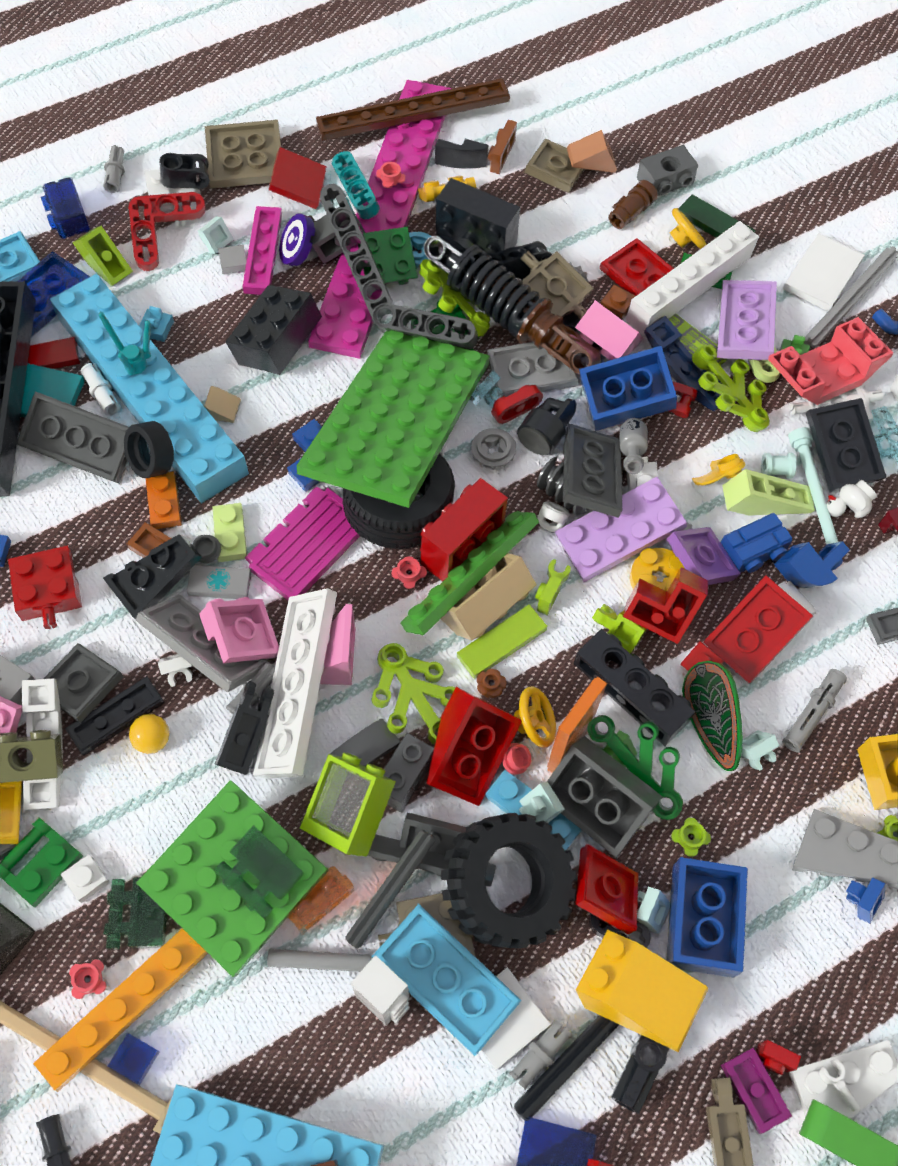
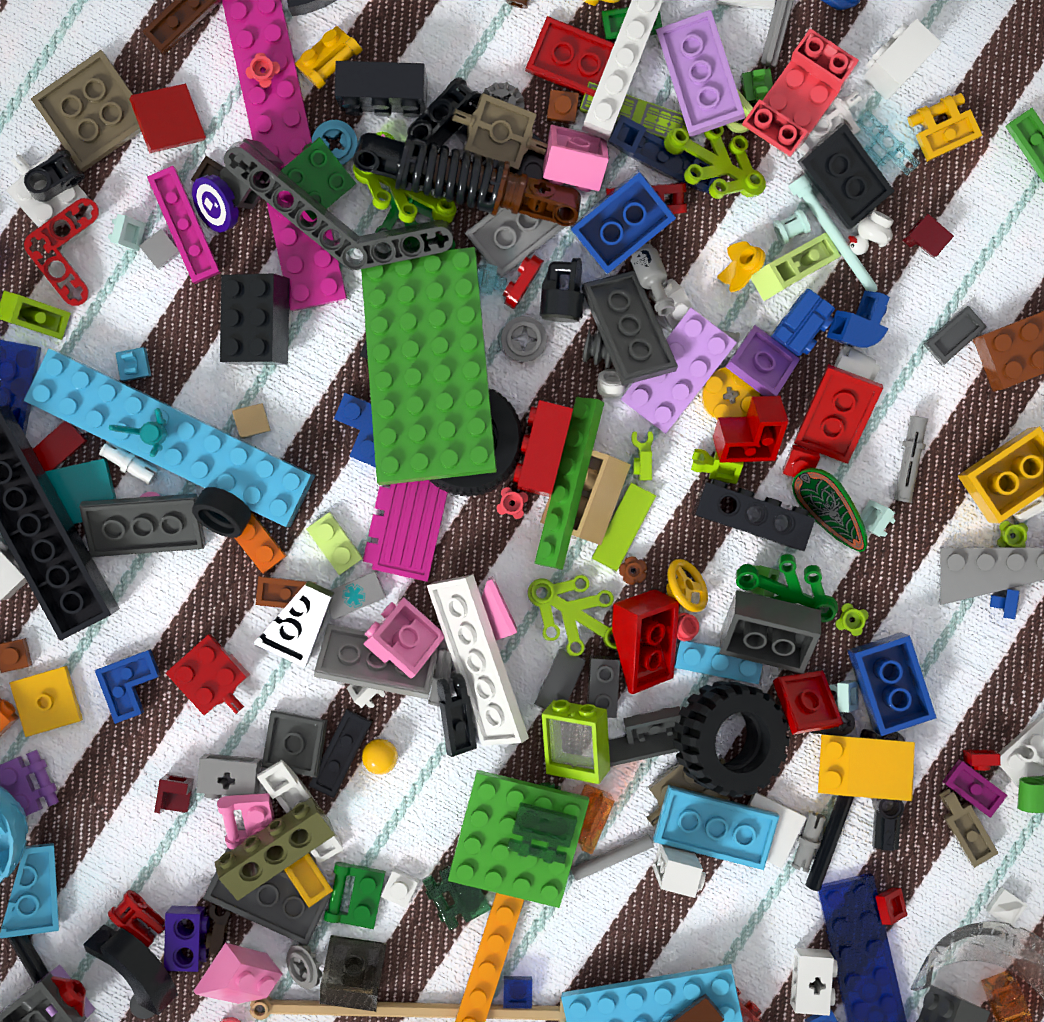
camera: 25 degrees left, 25 degrees up
(80, 972) = (445, 964): coral plate -> none
(207, 547) = (326, 573): dark grey plate -> none
(355, 184) = (231, 97): teal beam -> none
(390, 889) = (641, 783): dark grey axle -> none
(541, 803) = (726, 664): light aqua tile -> none
(576, 722) = (730, 595): orange tile -> none

